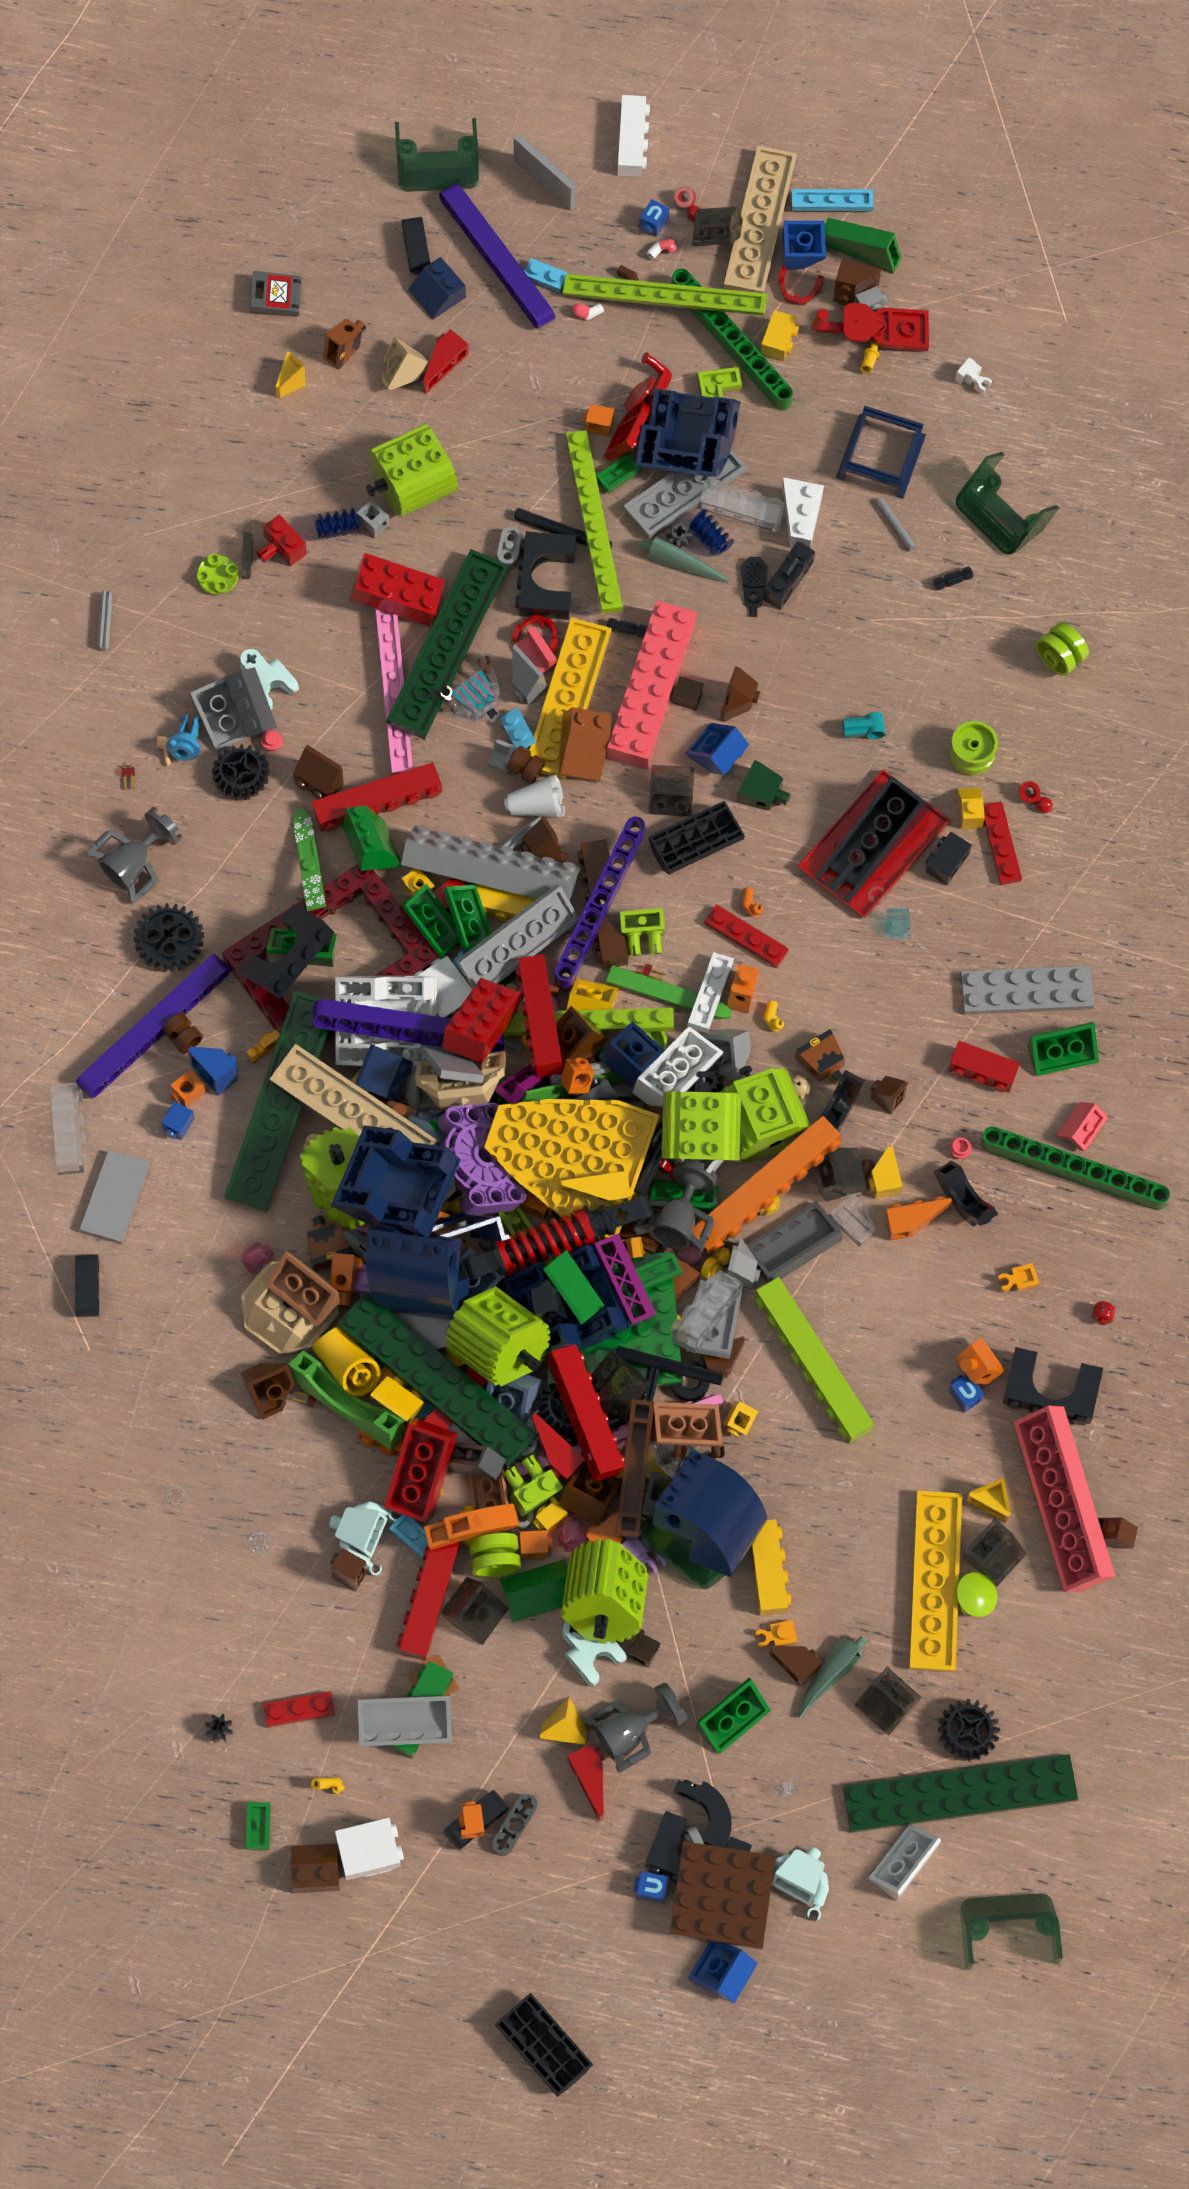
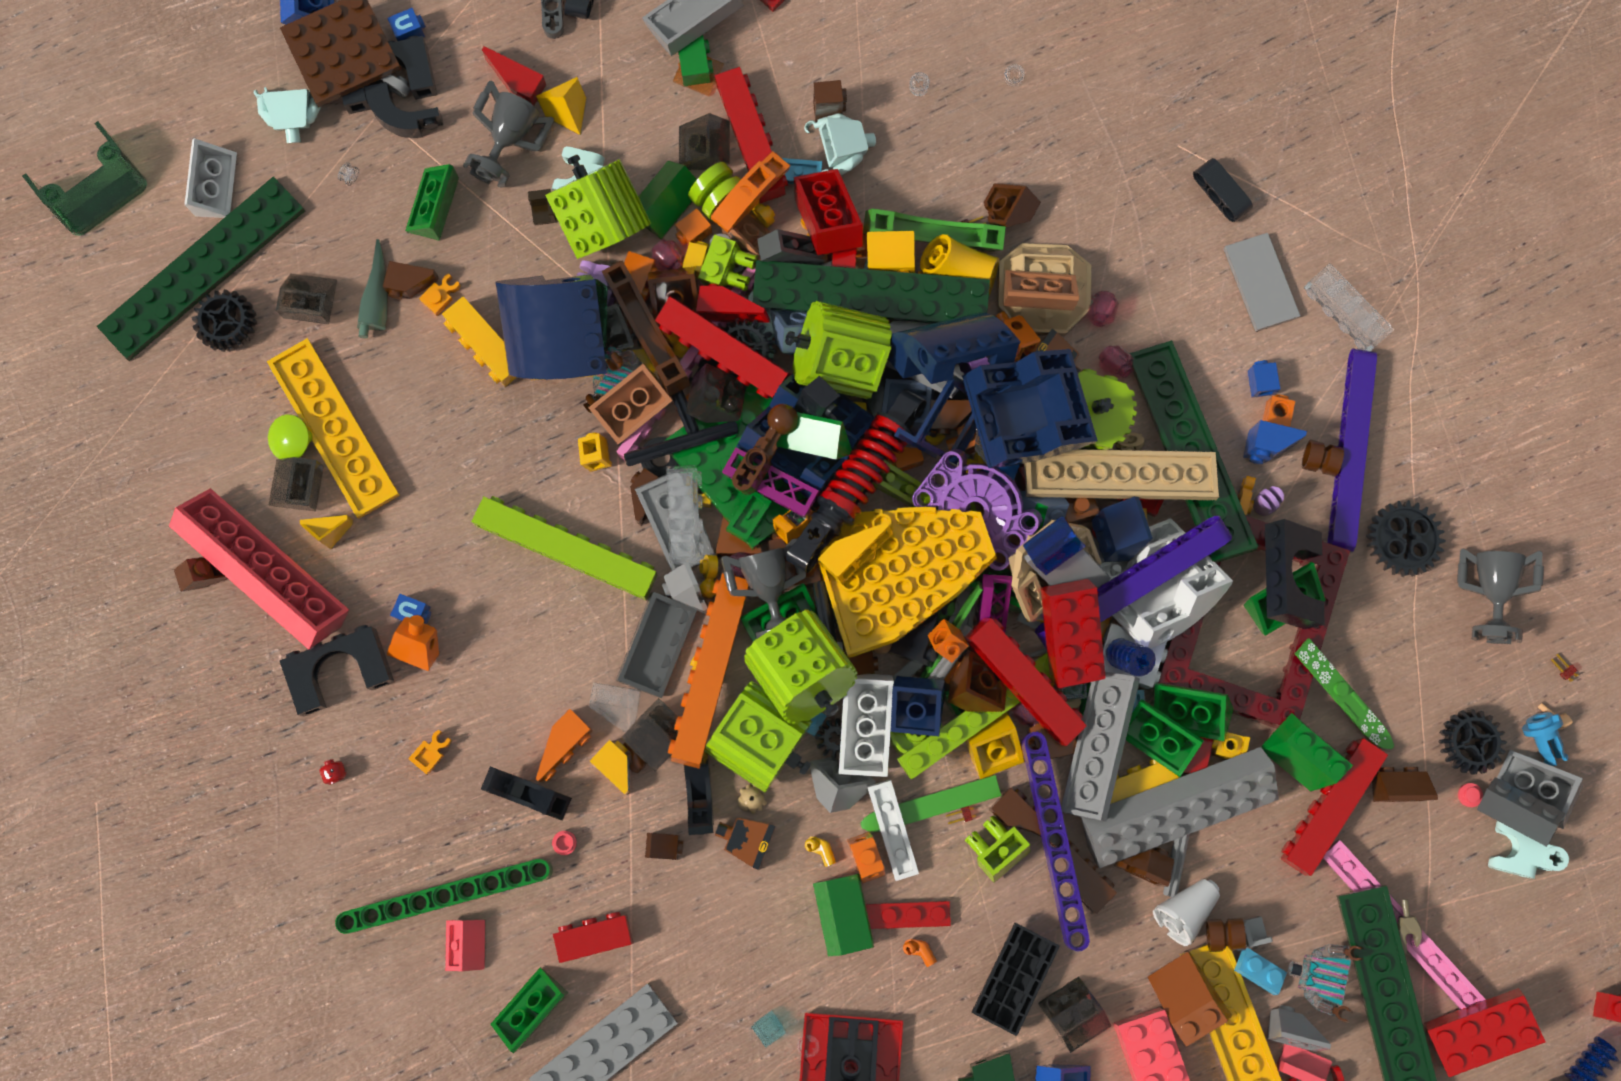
camera: 145 degrees right, 10 degrees up
(251, 1030) = (1268, 501): none -> lavender arm
(280, 1210) = (1116, 361): none -> clear pink head
(390, 687) = (1409, 925): none -> dark tan hand
(451, 979) = (1130, 657): none -> clear blue piece
(457, 1072) = (1053, 545): none -> clear blue panel
(585, 1309) = (782, 421): none -> reddish brown beam
(789, 960) = (843, 915): none -> green slope

